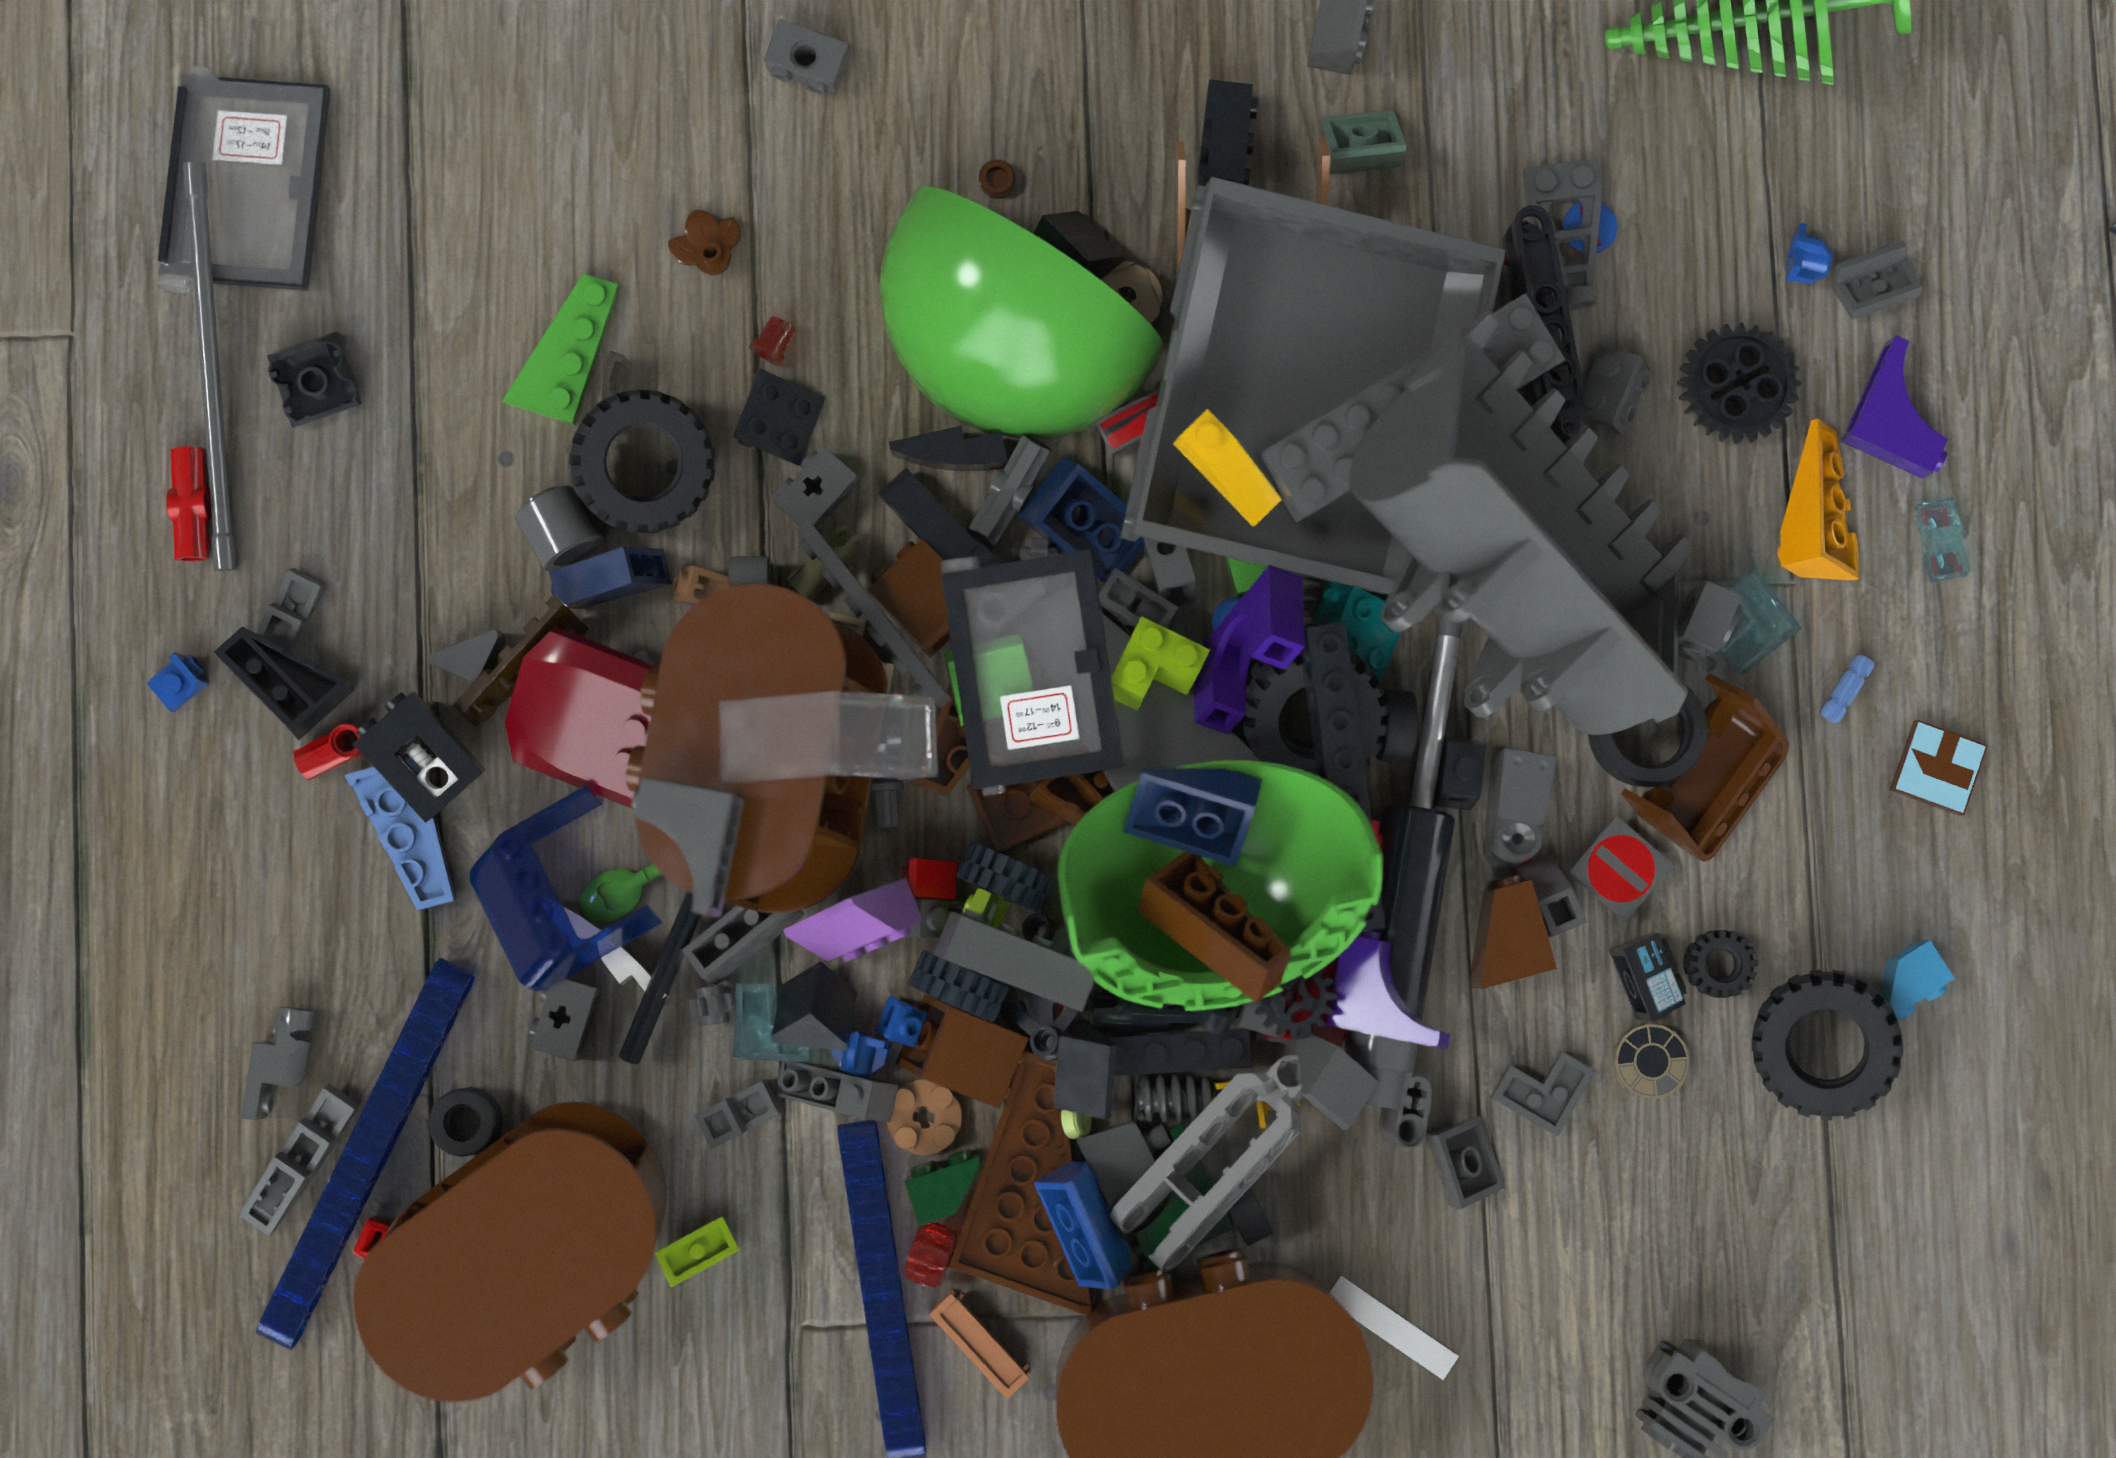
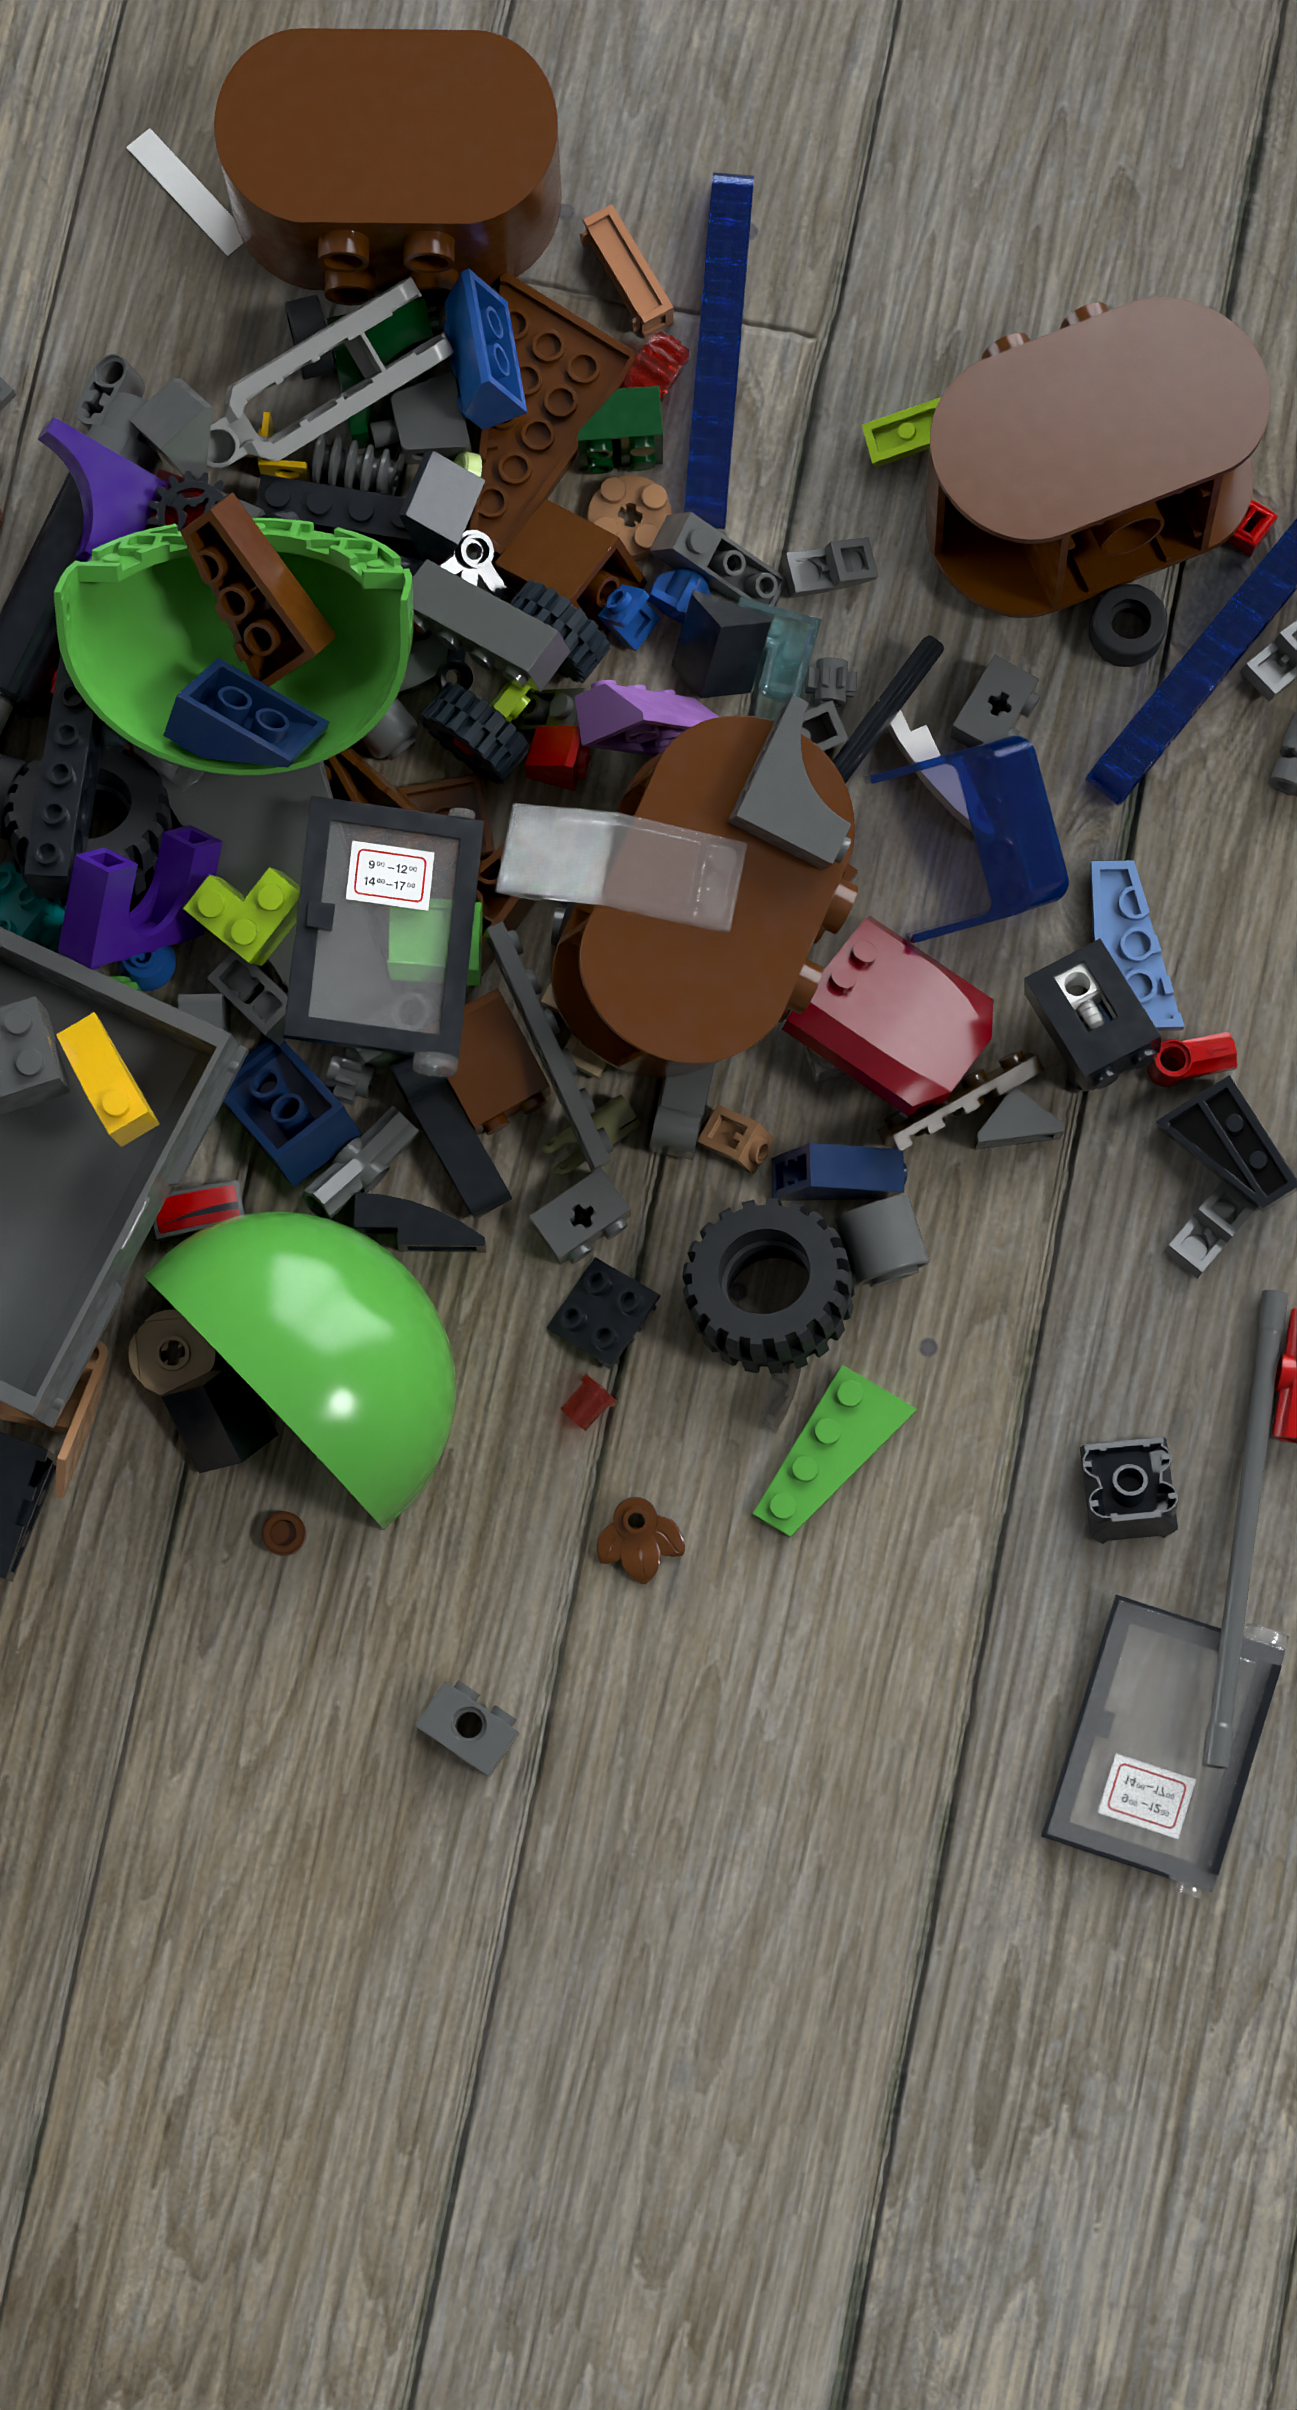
camera: 165 degrees left, 5 degrees down
(615, 893) = (910, 833): bright green piece -> none
(1465, 1162) = (62, 332): dark grey slope -> none

